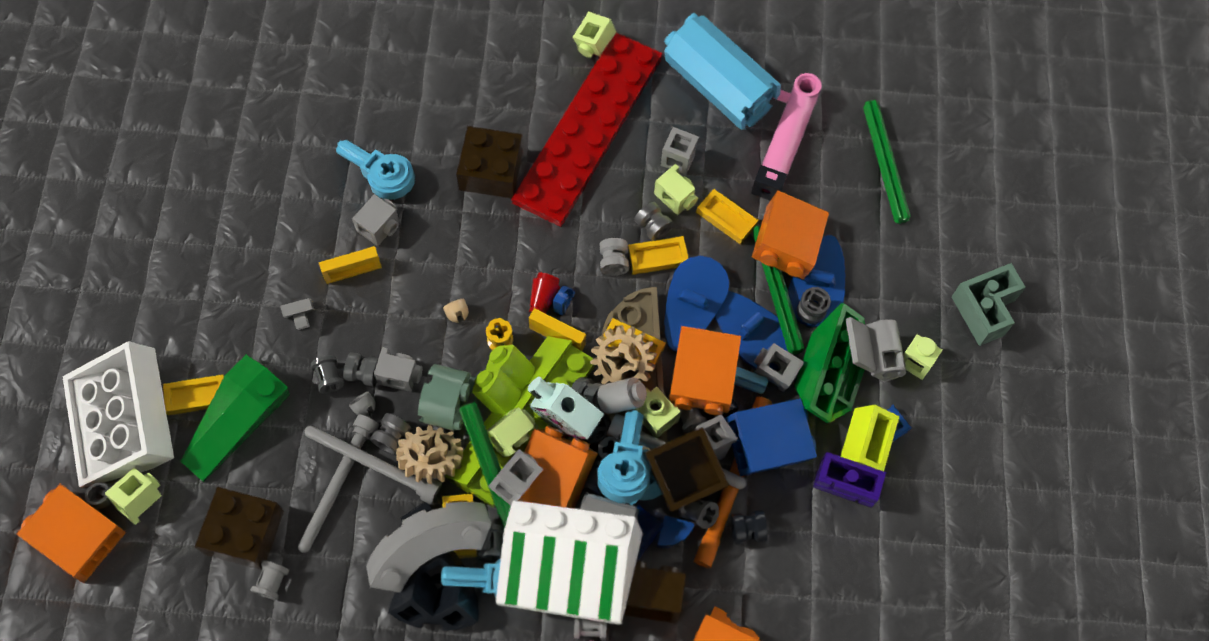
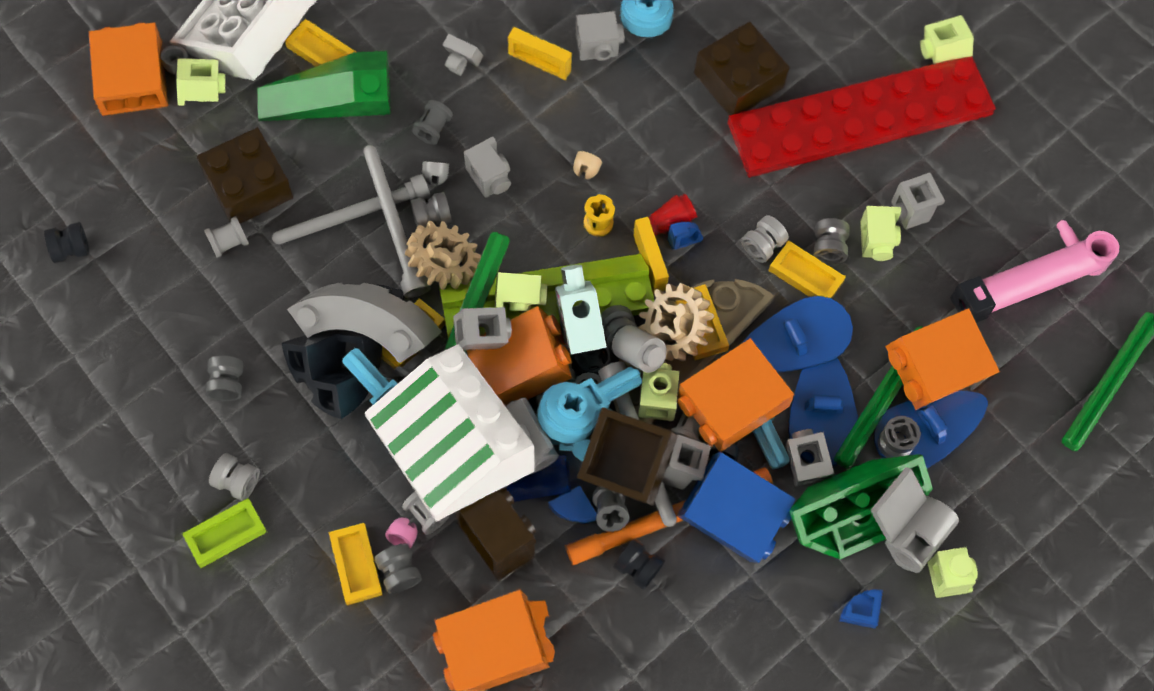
camera: 45 degrees right, 0 degrees up
(360, 368) = (459, 137): dark grey wheel -> none
(445, 396) = (504, 213): sand green brick -> none
(503, 379) = (554, 248): lime brick -> none
(721, 71) = (1030, 166): medium azure brick -> none
(727, 216) = (905, 296): yellow tile -> none
(849, 479) = (768, 609): dark purple brick -> none
(870, 436) = (823, 595): neon yellow brick -> none
(984, 302) = (1070, 580): sand green brick -> none

